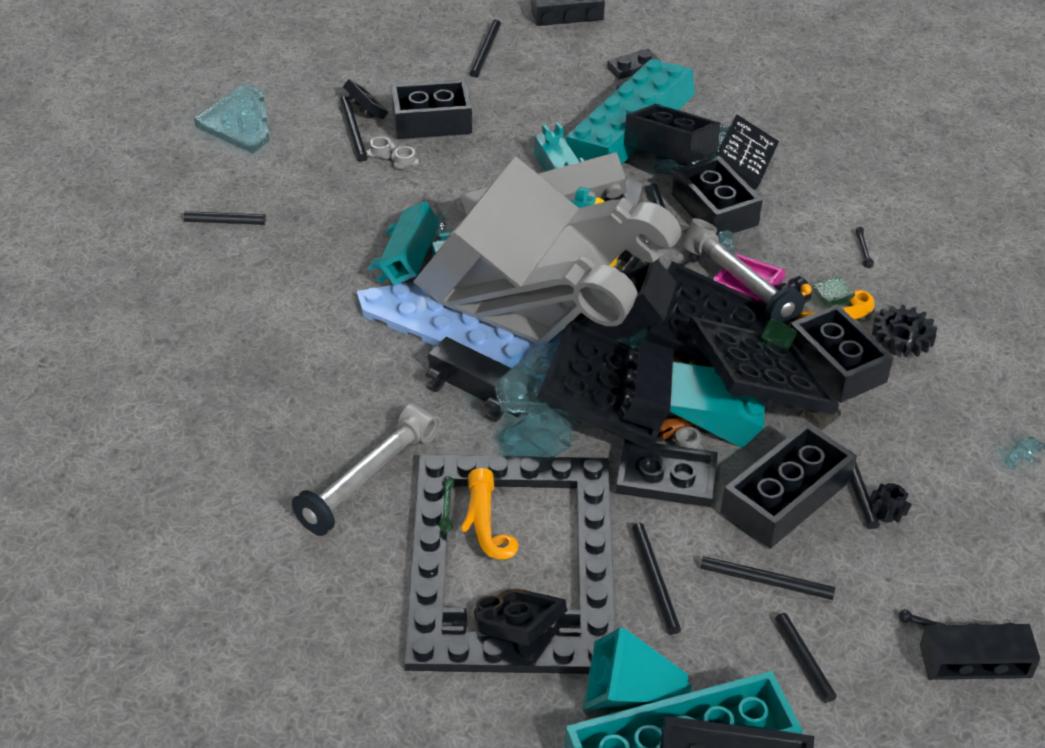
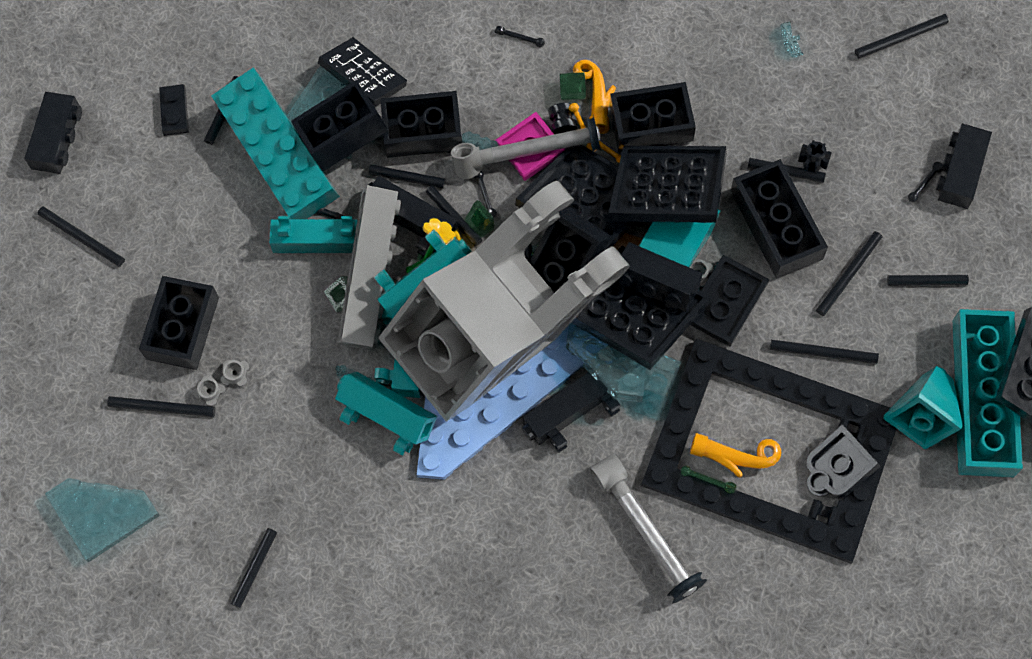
camera: 65 degrees left, 25 degrees up
(362, 97) = (126, 380): black plate -> none
(779, 334) = (629, 153): clear green slope -> none
(904, 330) = (650, 54): black gear -> none

